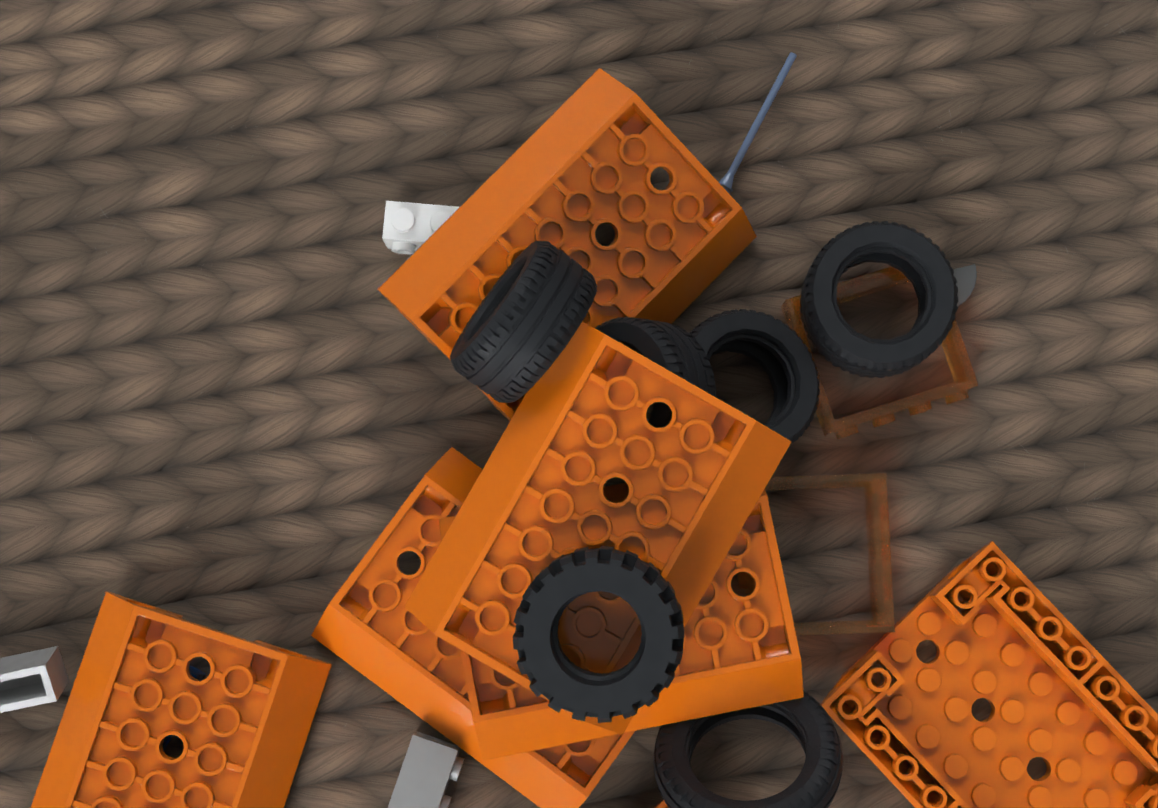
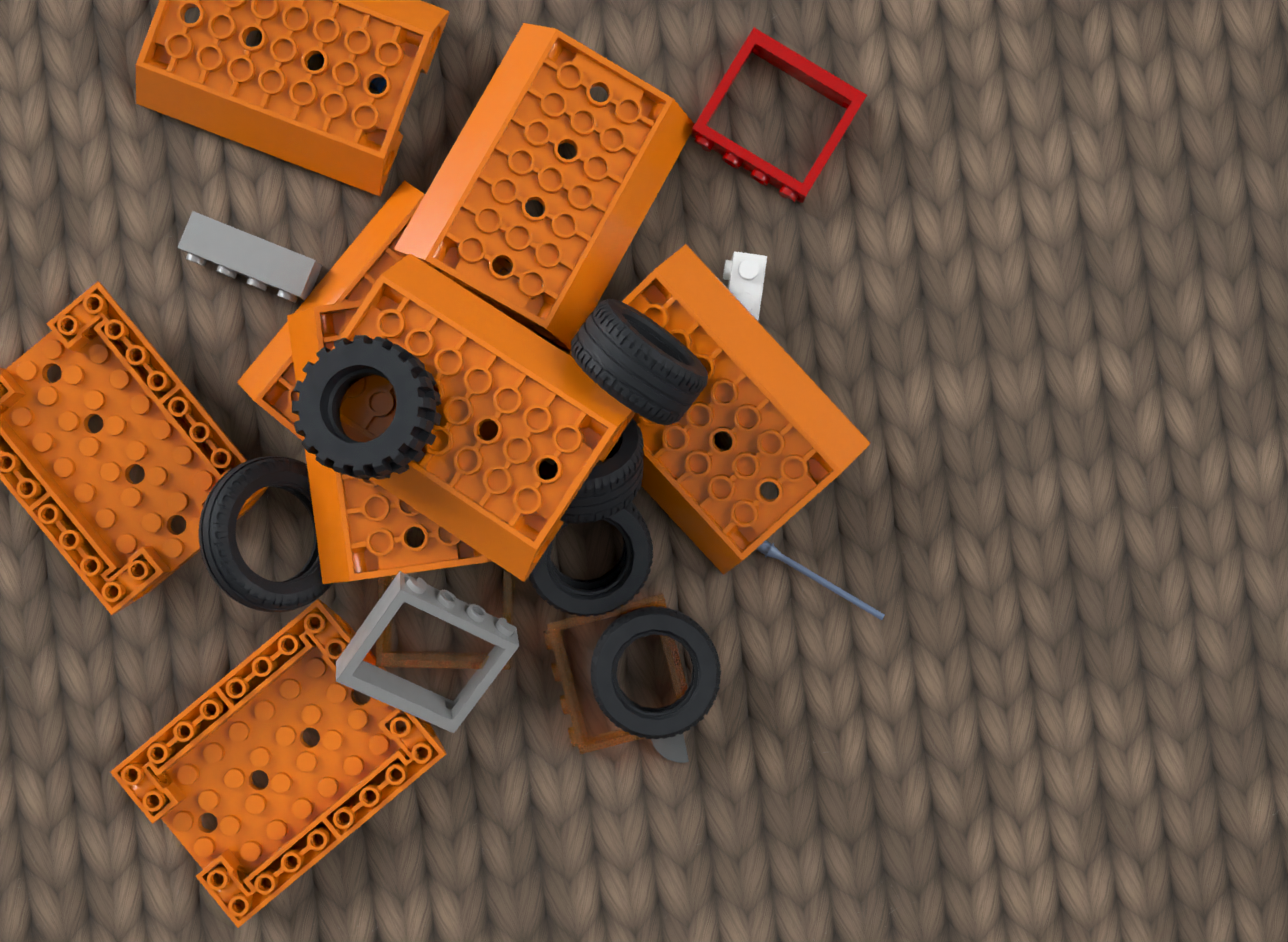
camera: 95 degrees right, 5 degrees up
(169, 172) = (805, 72): none -> red window
(281, 499) = (513, 157): none -> orange slope
(910, 642) = (404, 694): none -> light grey window

